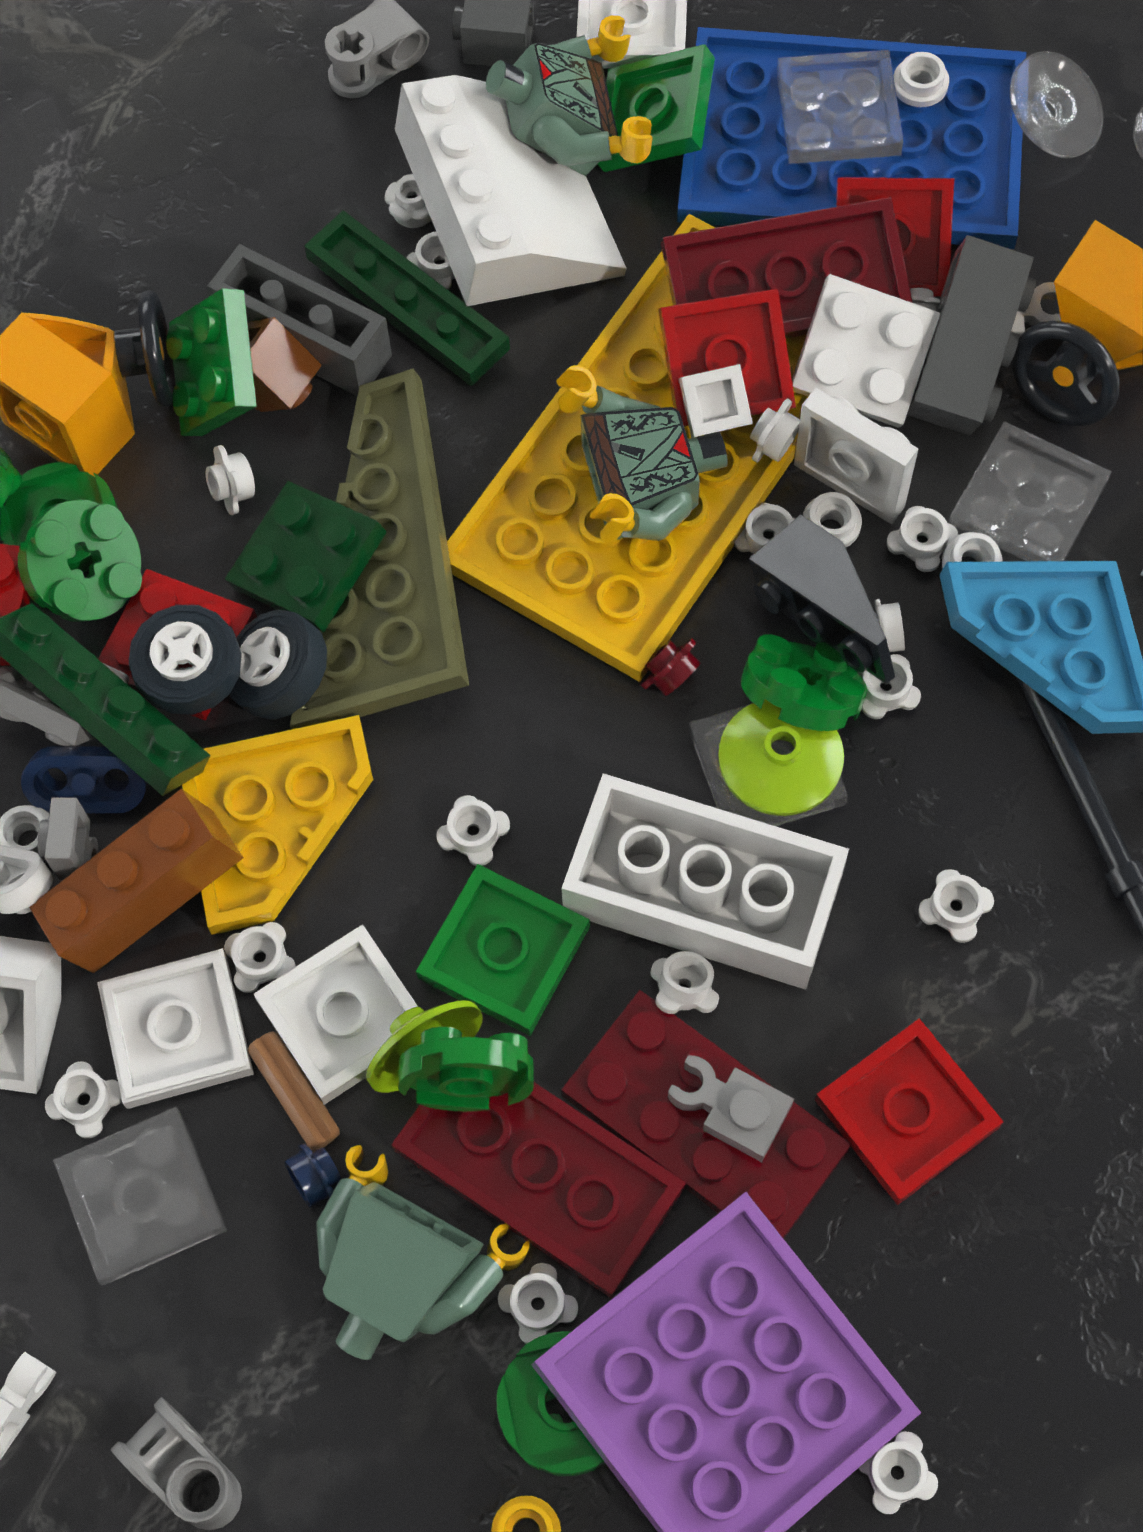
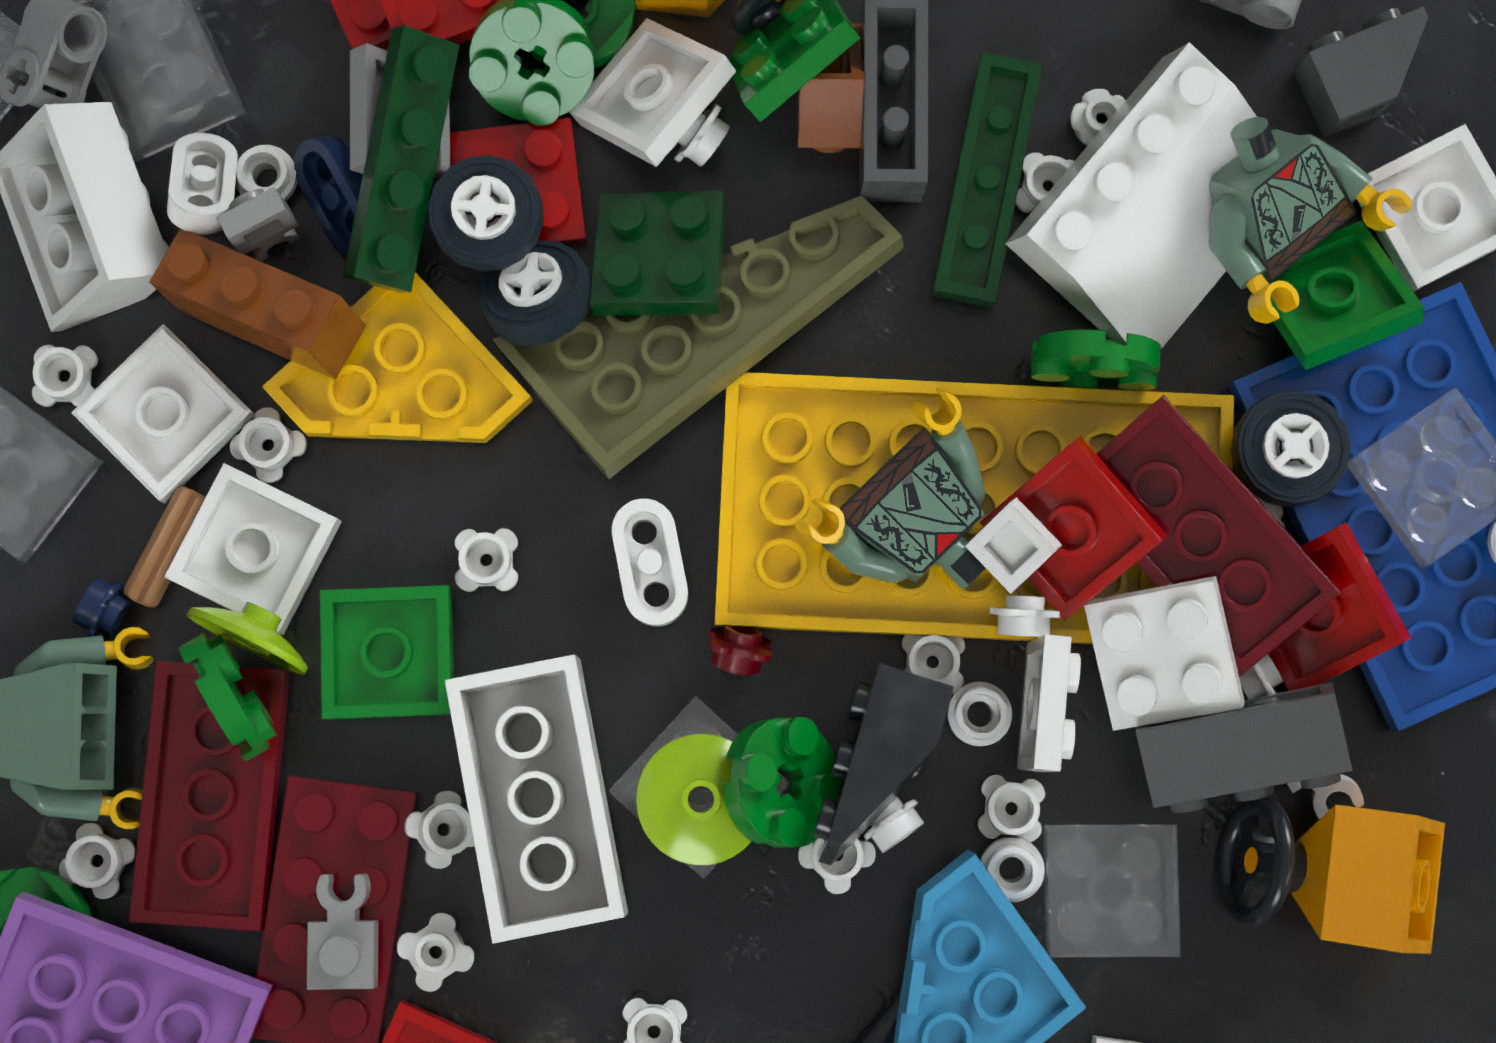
camera: 55 degrees right, 15 degrees up
(171, 488) = (653, 91): none -> white plate
(560, 697) = (649, 563): none -> white plate
(601, 282) = (1095, 360): none -> green plate
(760, 167) = (1308, 433): none -> black wheel
(783, 1064) = (454, 955): none -> white plate

